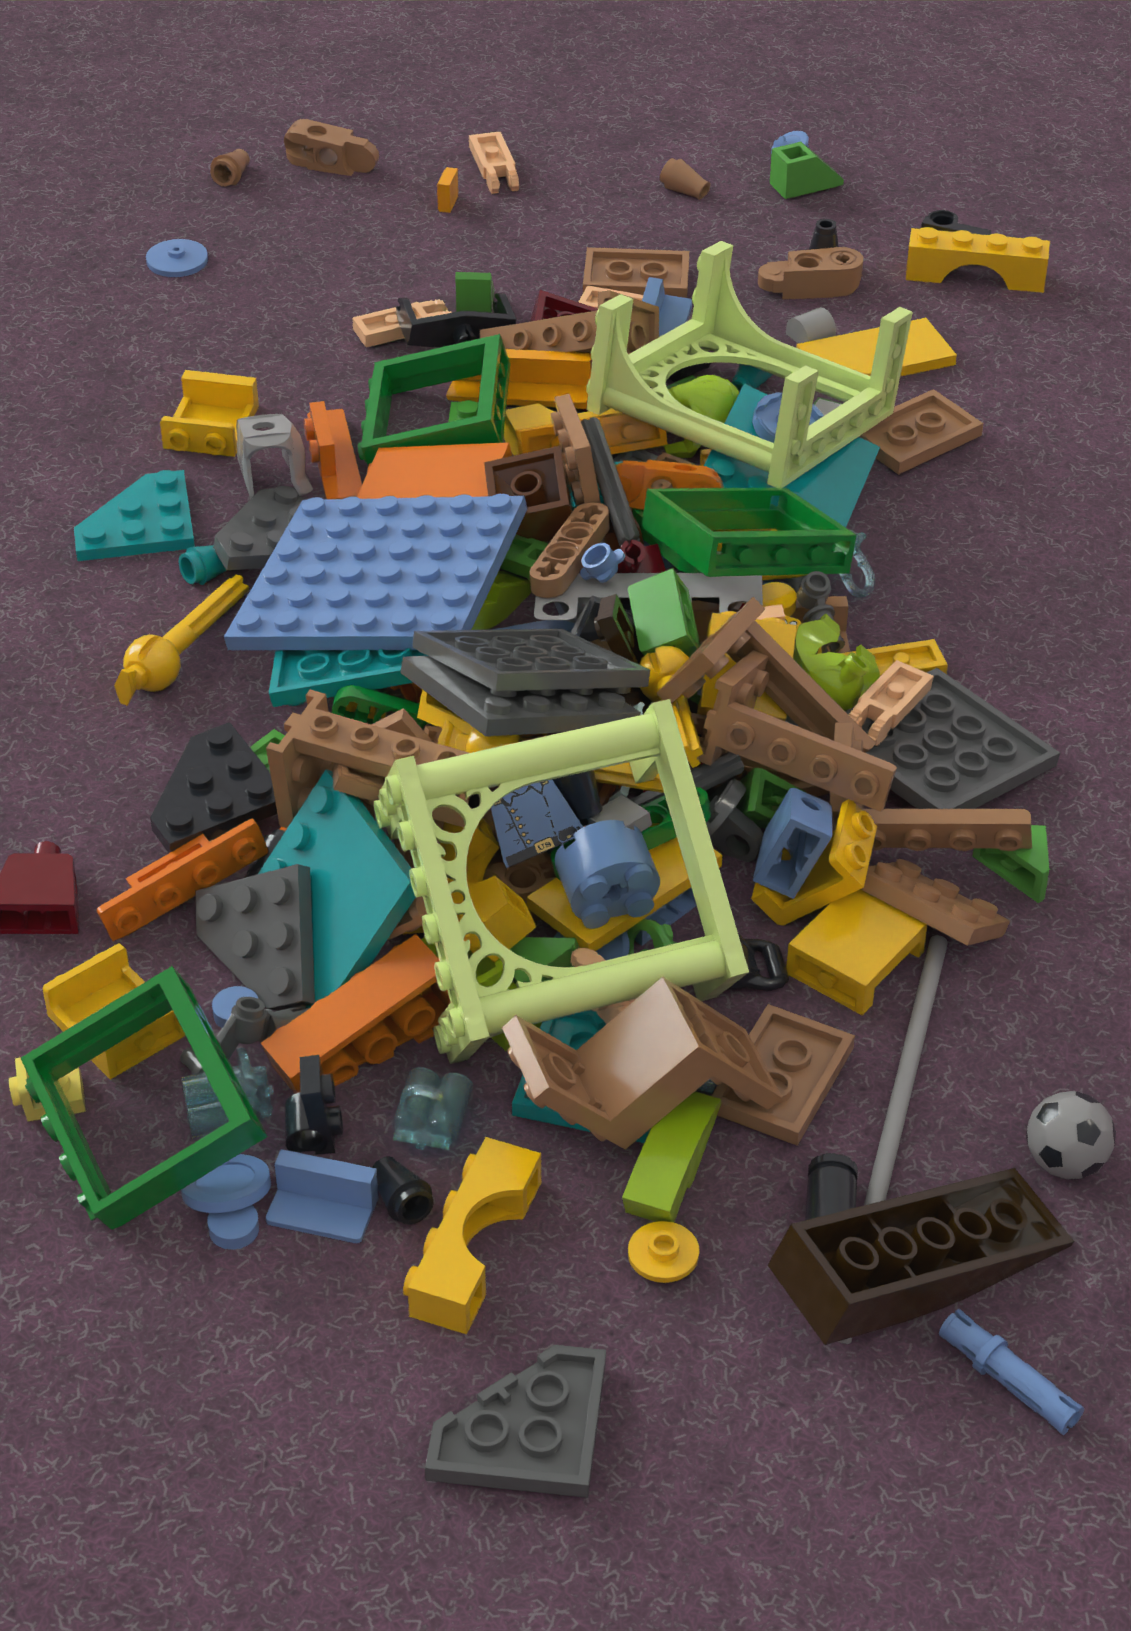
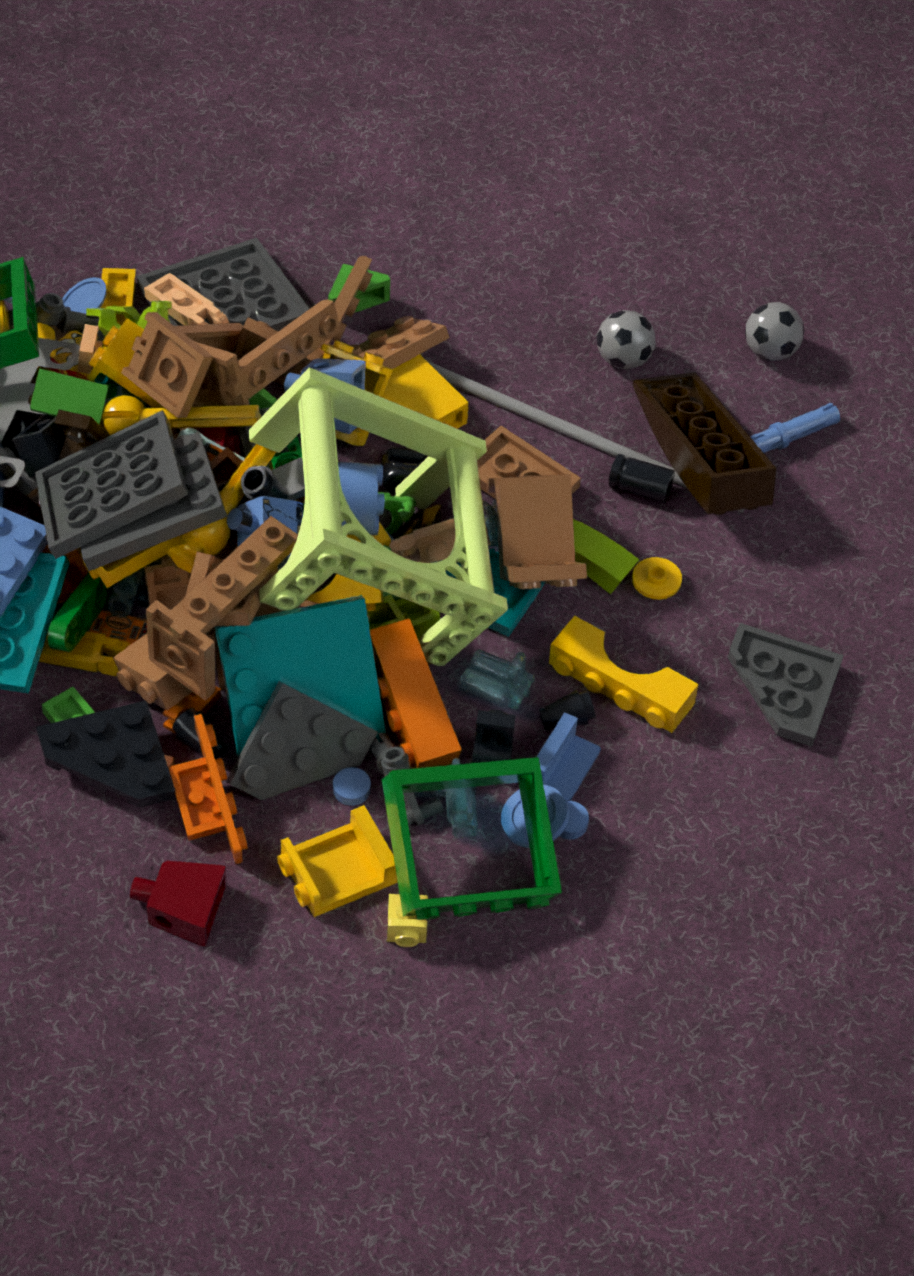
camera: 80 degrees left, 10 degrees up
(876, 637) = (85, 294): none -> medium blue piece

